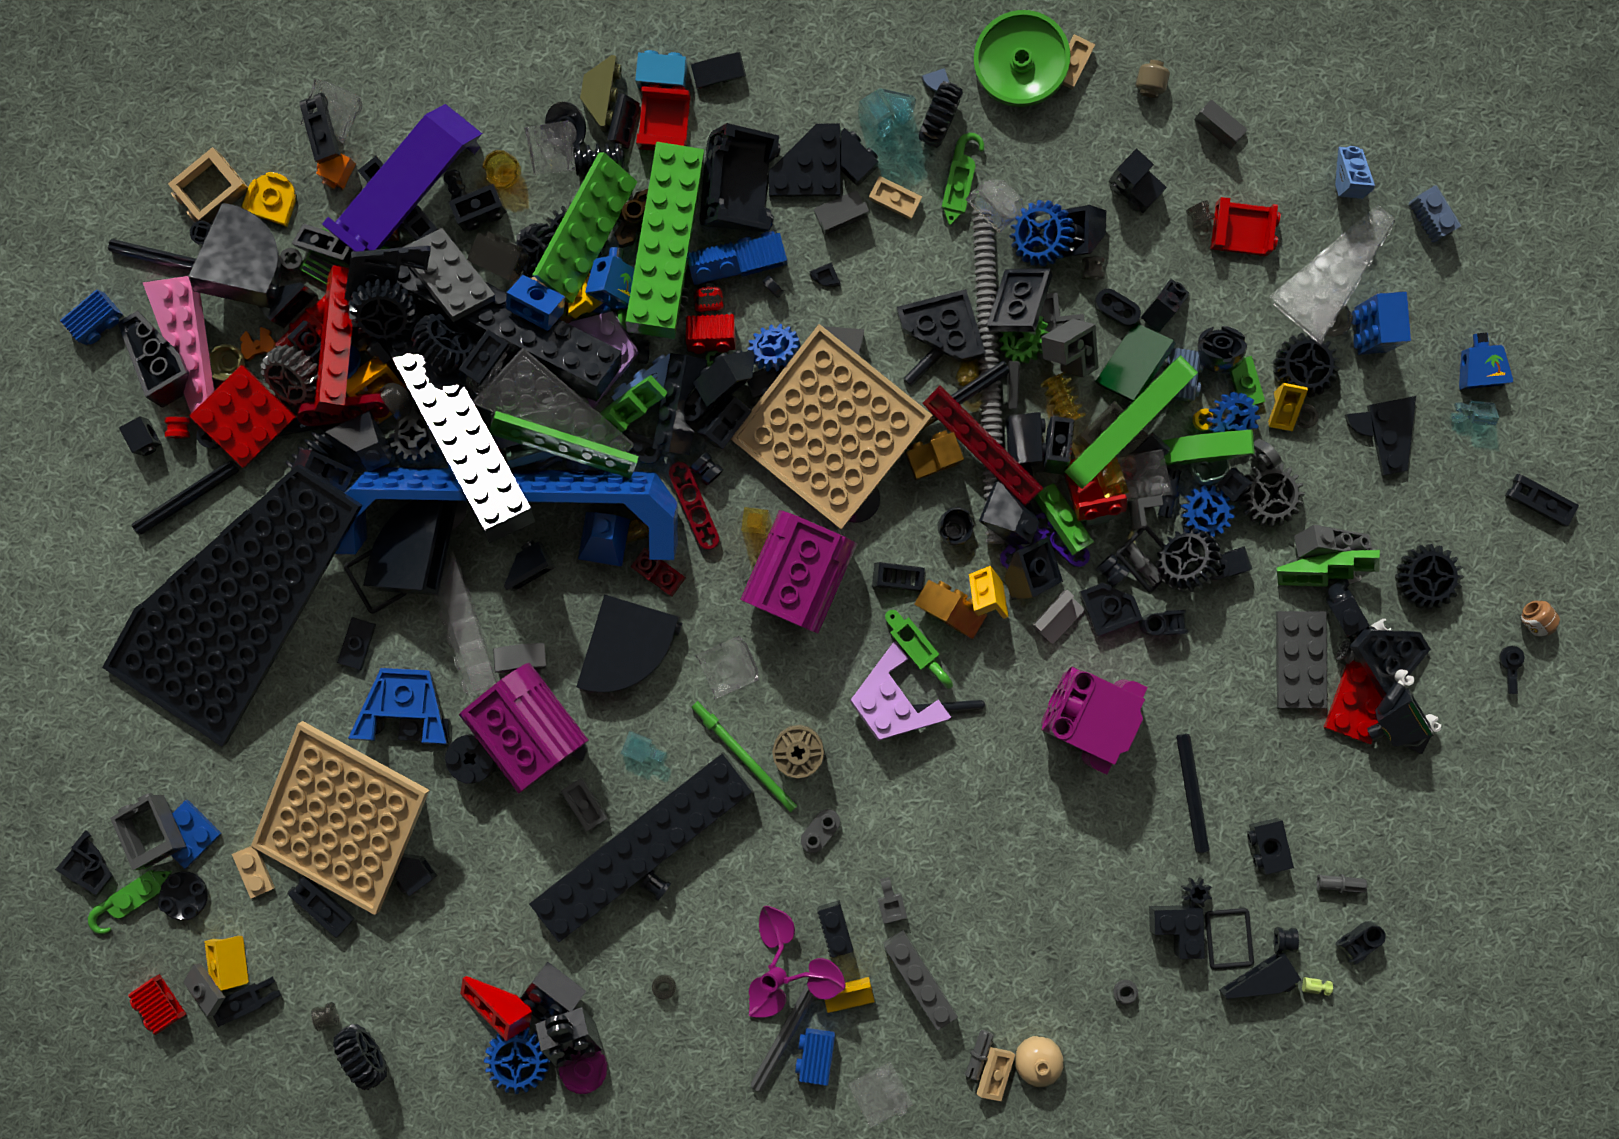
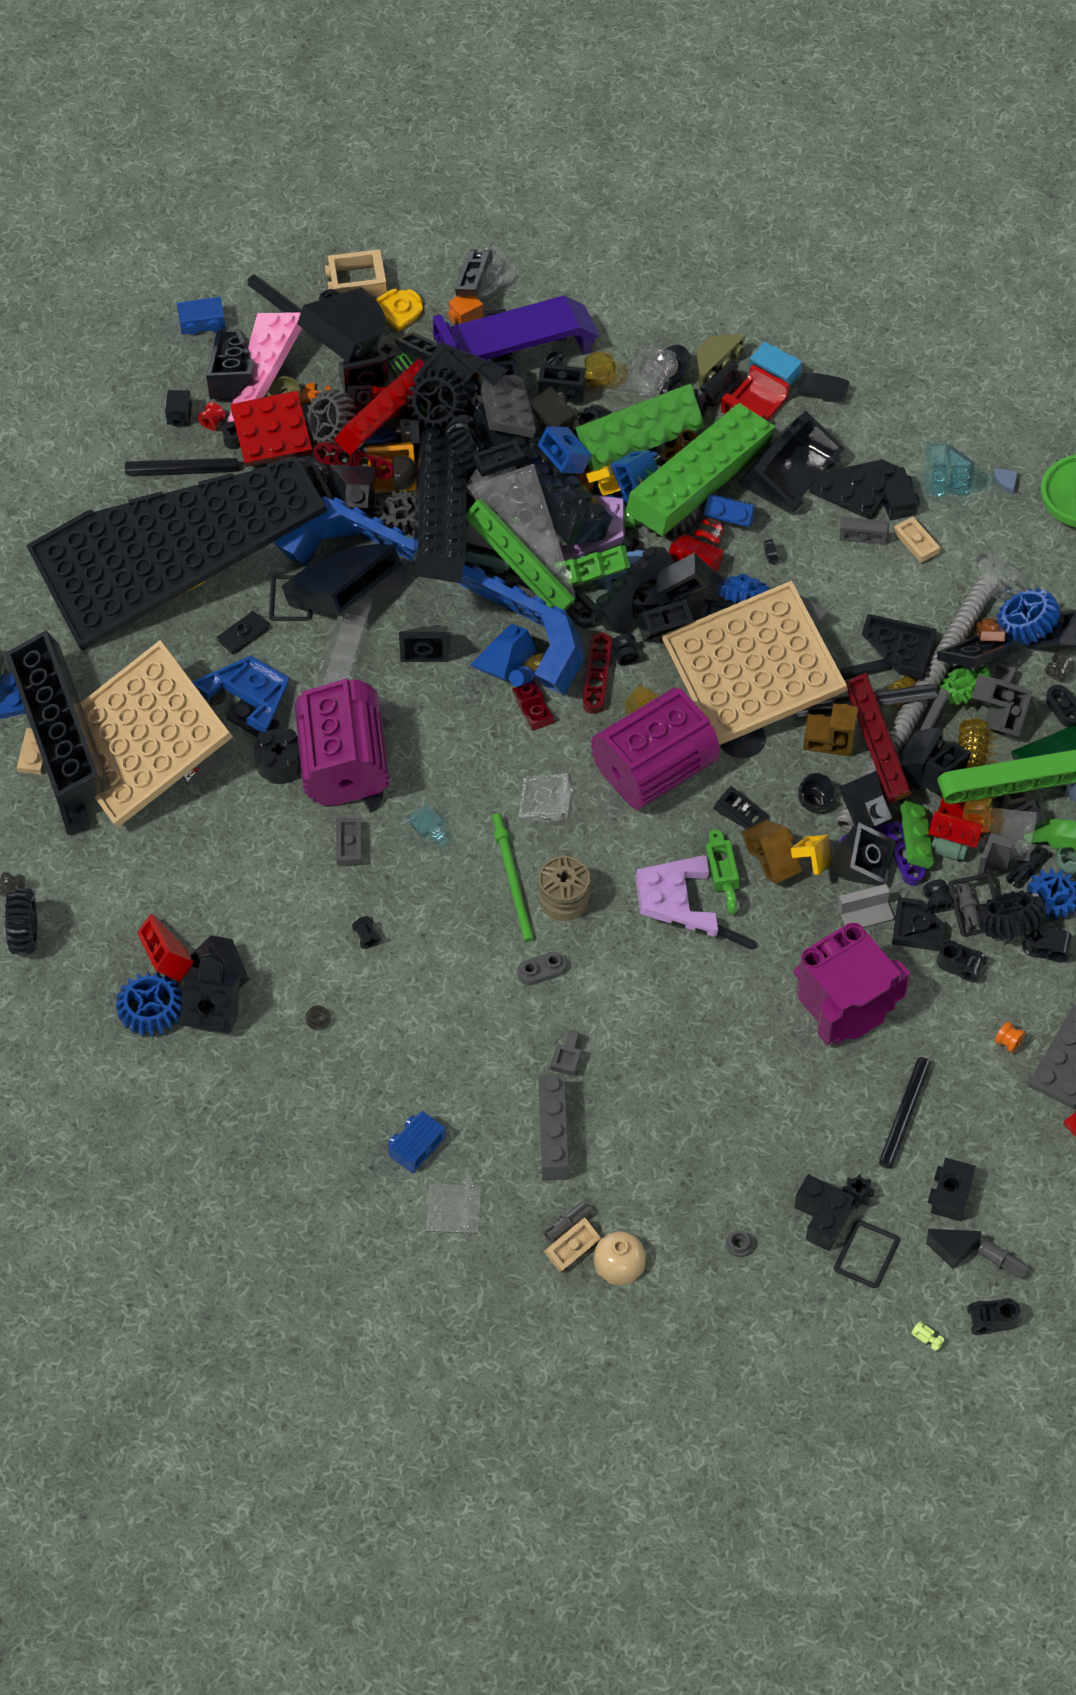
camera: 30 degrees right, 30 degrees down
(257, 846) = (57, 720): none -> black brick
(413, 873) = (166, 816): black slope -> none
(593, 1067) = (207, 1049): magenta tile -> none
(626, 645) = (468, 741): black brick -> none
(633, 553) = (521, 676): none -> blue piece
(641, 847) = (379, 892): black brick -> none
(760, 253) = (774, 523): blue brick -> none
(764, 992) = (450, 1020): magenta plant -> none
(782, 1040) = (398, 1114): dark grey axle -> none
(825, 275) = (821, 566): black tile -> none
(834, 929) = (502, 1046): black brick -> none
(855, 994) = (479, 1106): yellow panel -> none
(940, 114) = (992, 494): black gear -> none
(960, 178) = (966, 565): bright green plate -> none
(1016, 268) = (989, 630): none -> dark orange plate
(1243, 674) = (1010, 1037): none -> orange wheel
(1268, 977) = (882, 1299): black slope -> none
(1286, 939) = (920, 1276): black wheel -> none
(1298, 896) = (953, 1245): none -> black slope

